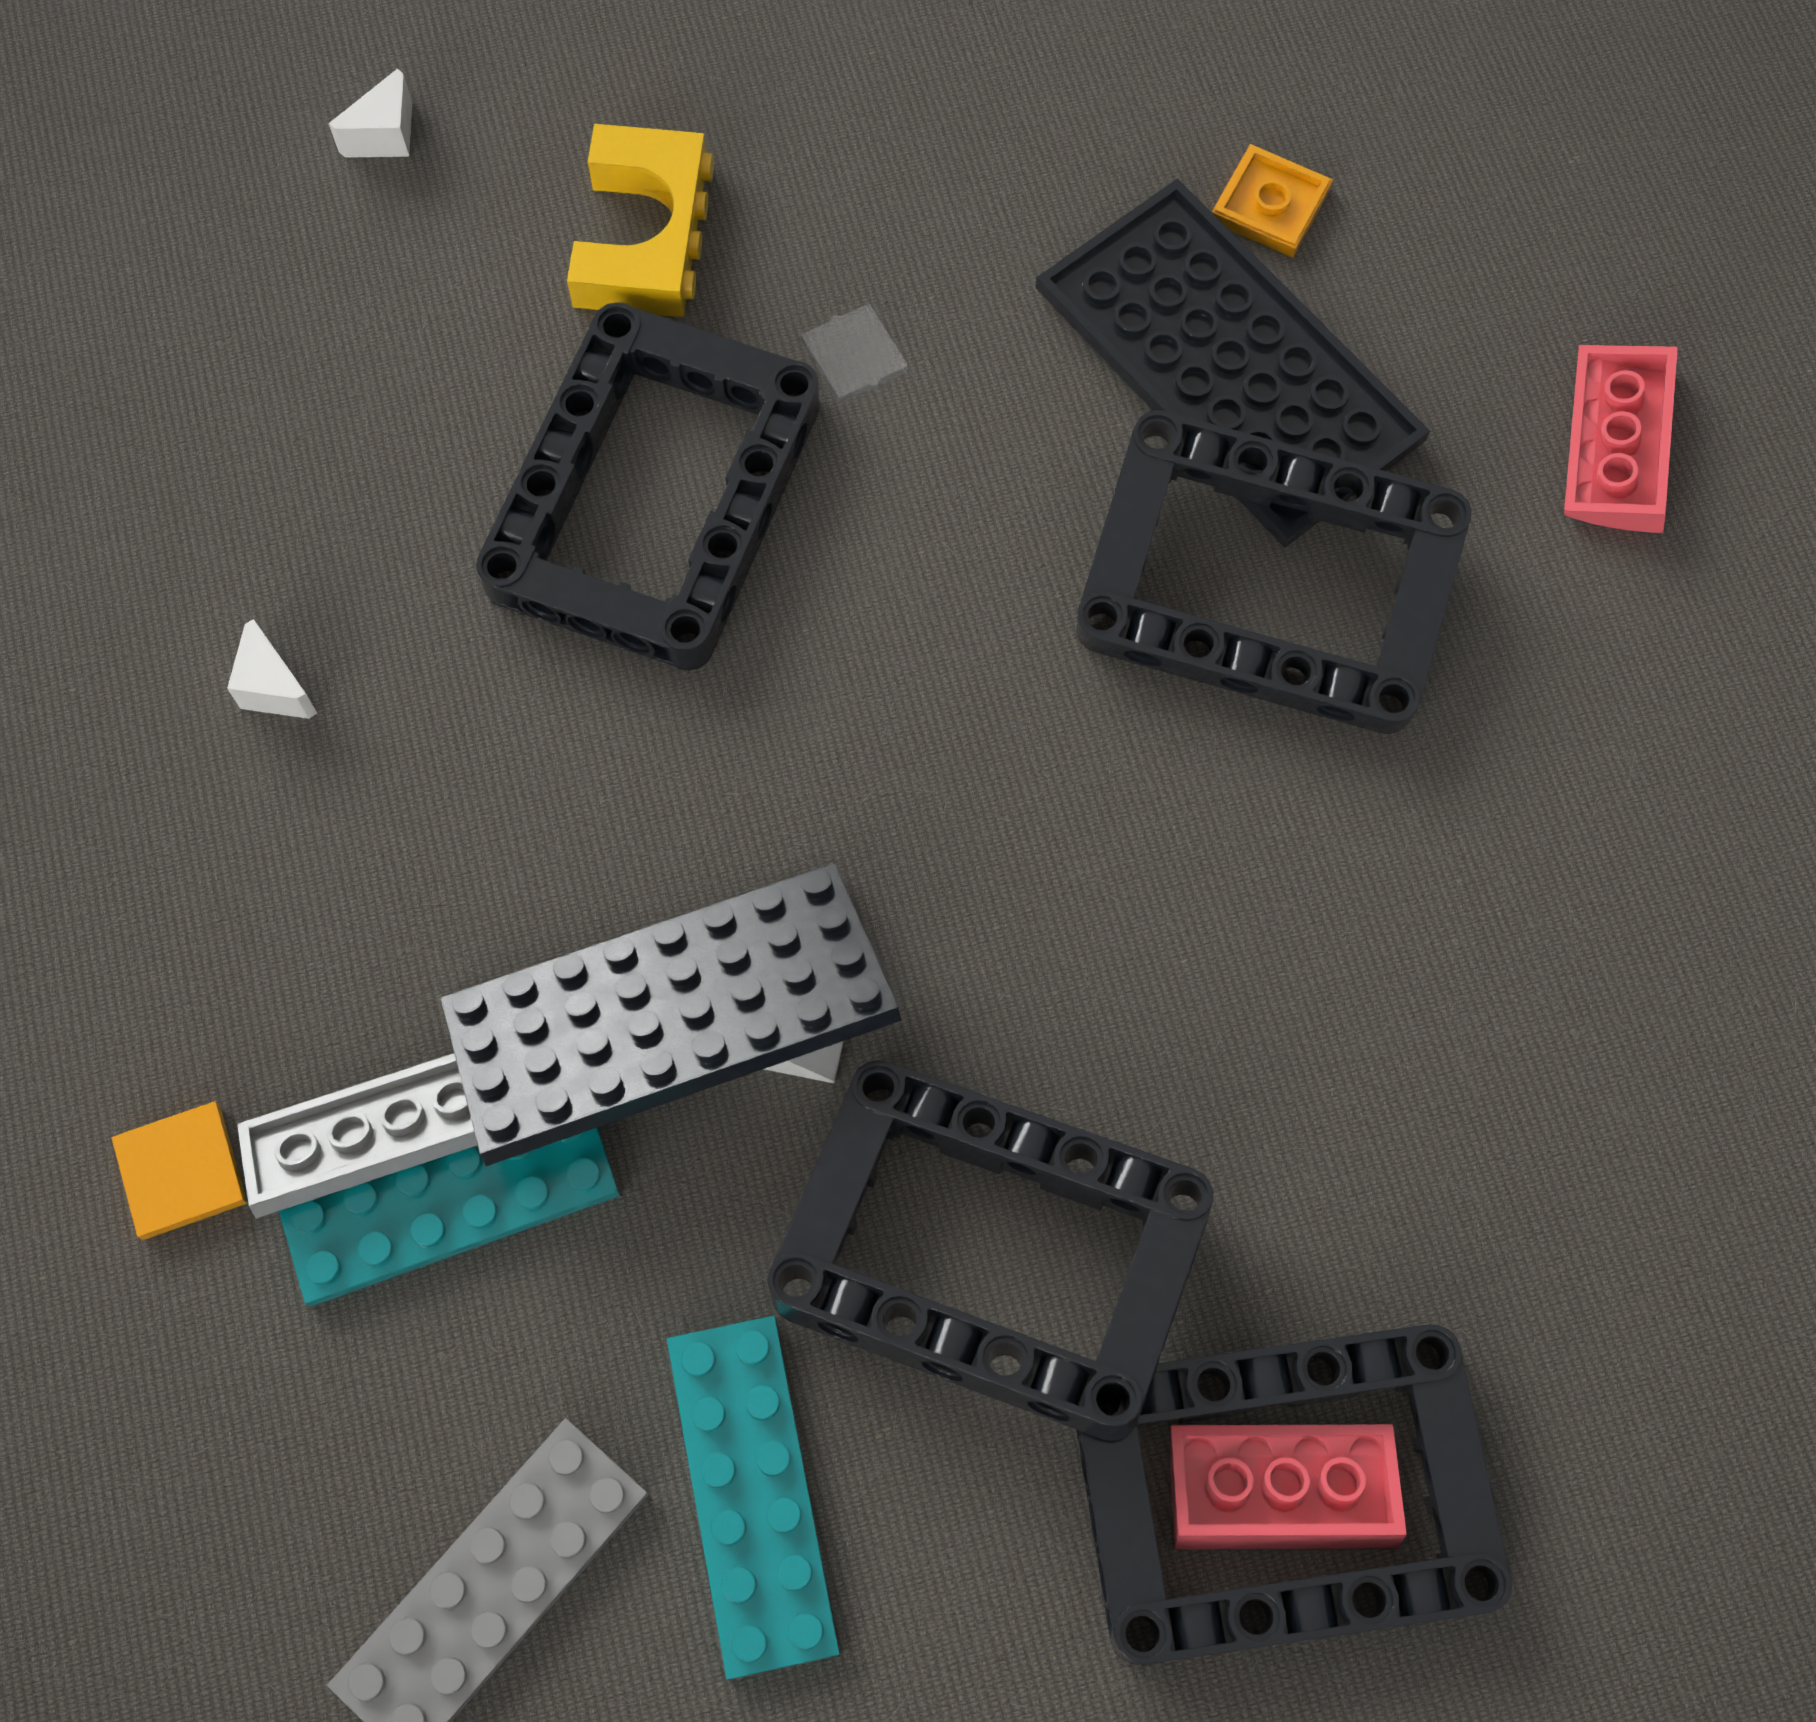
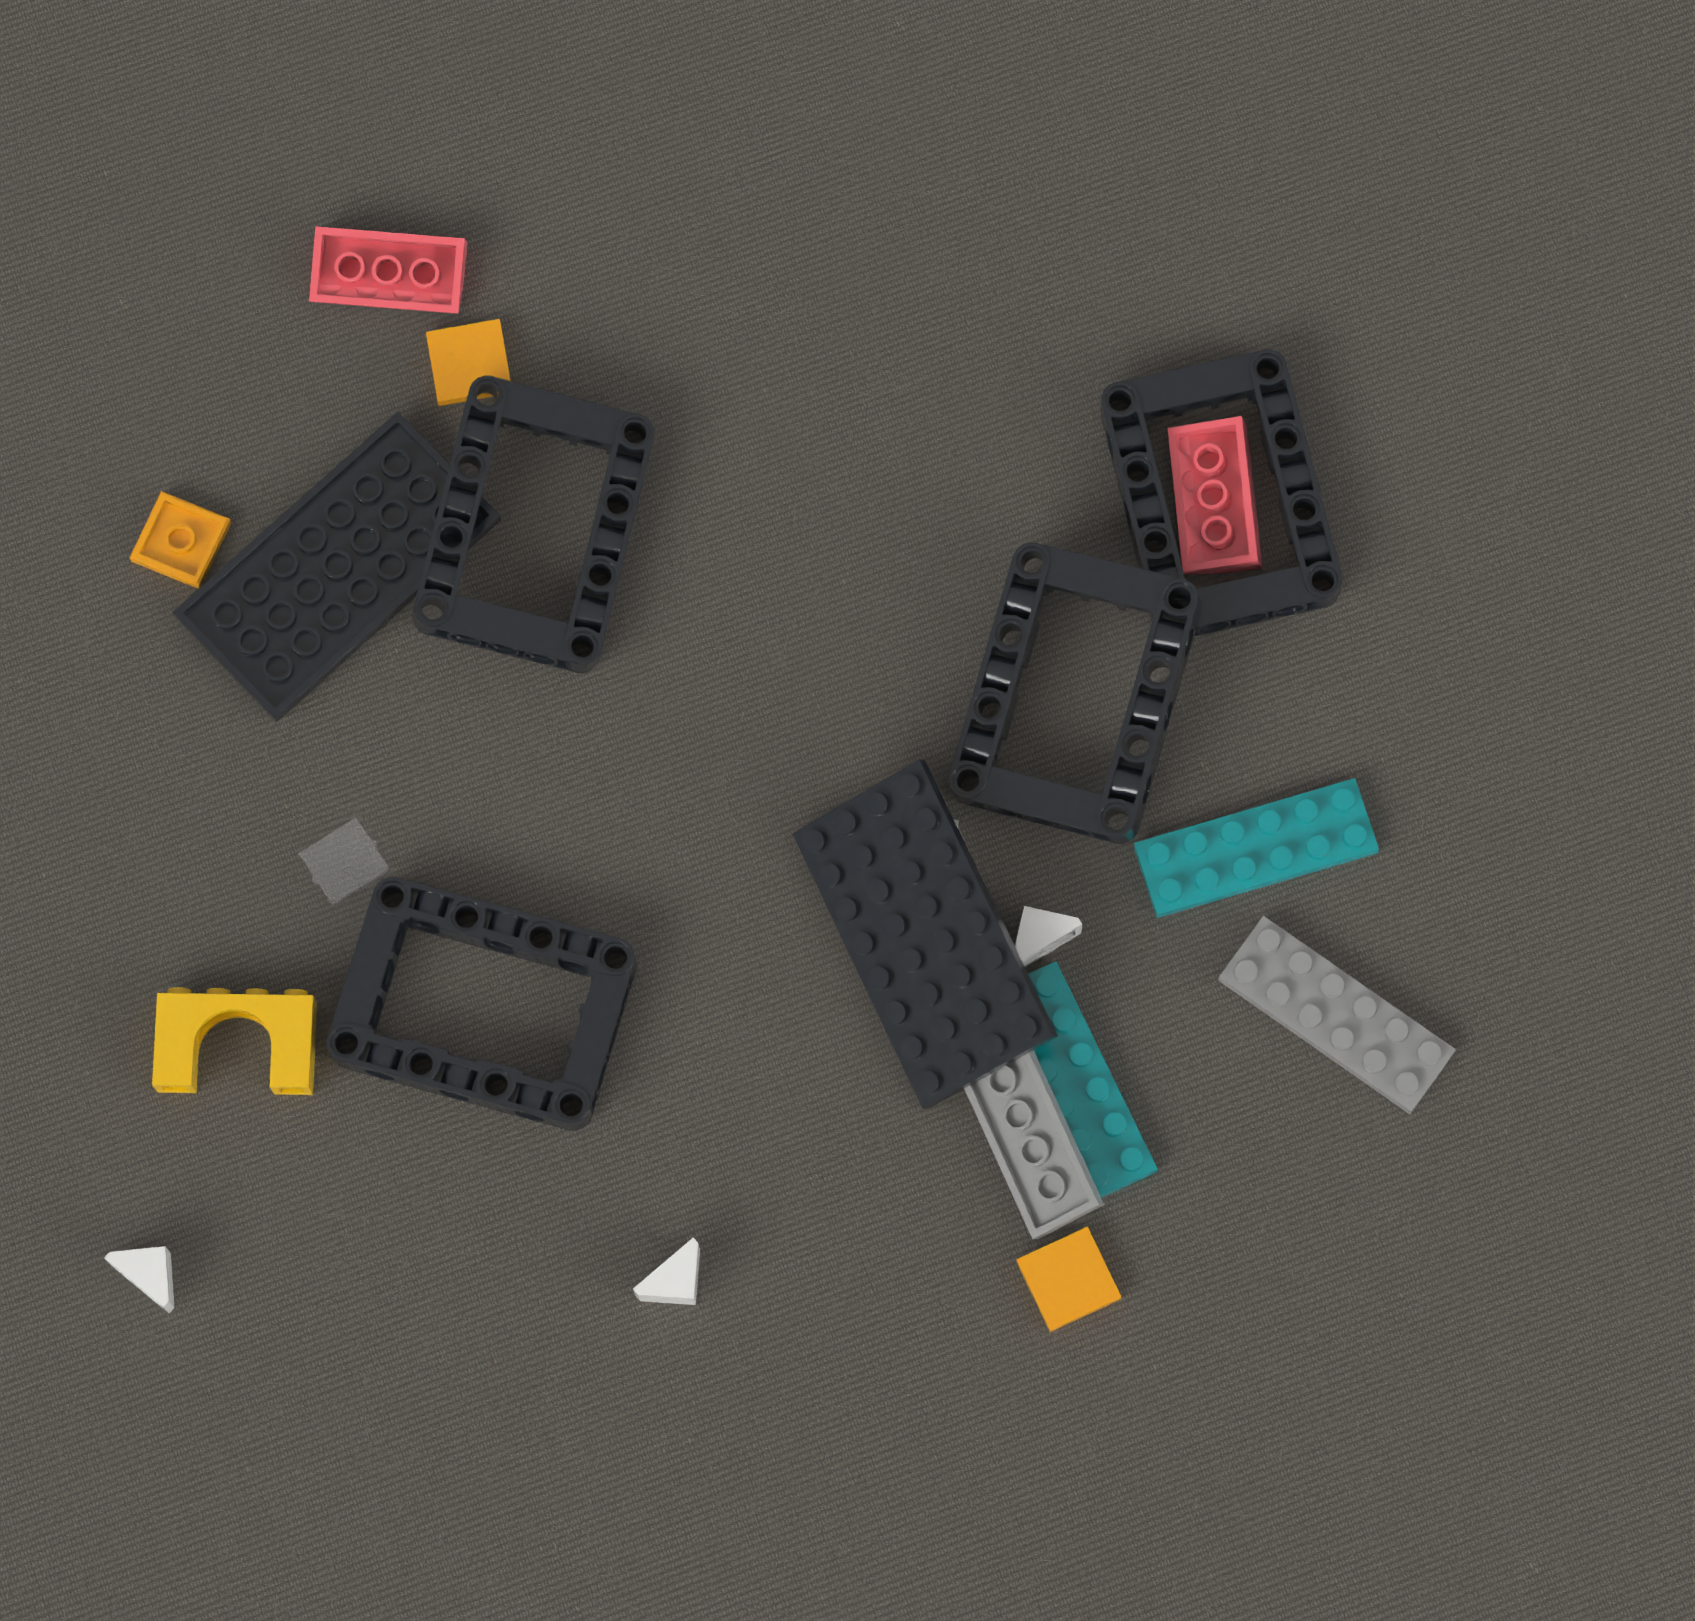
camera: 90 degrees left, 5 degrees up
(658, 1170) = (1043, 932): none -> white slope
(1506, 523) = (463, 355): none -> light orange tile

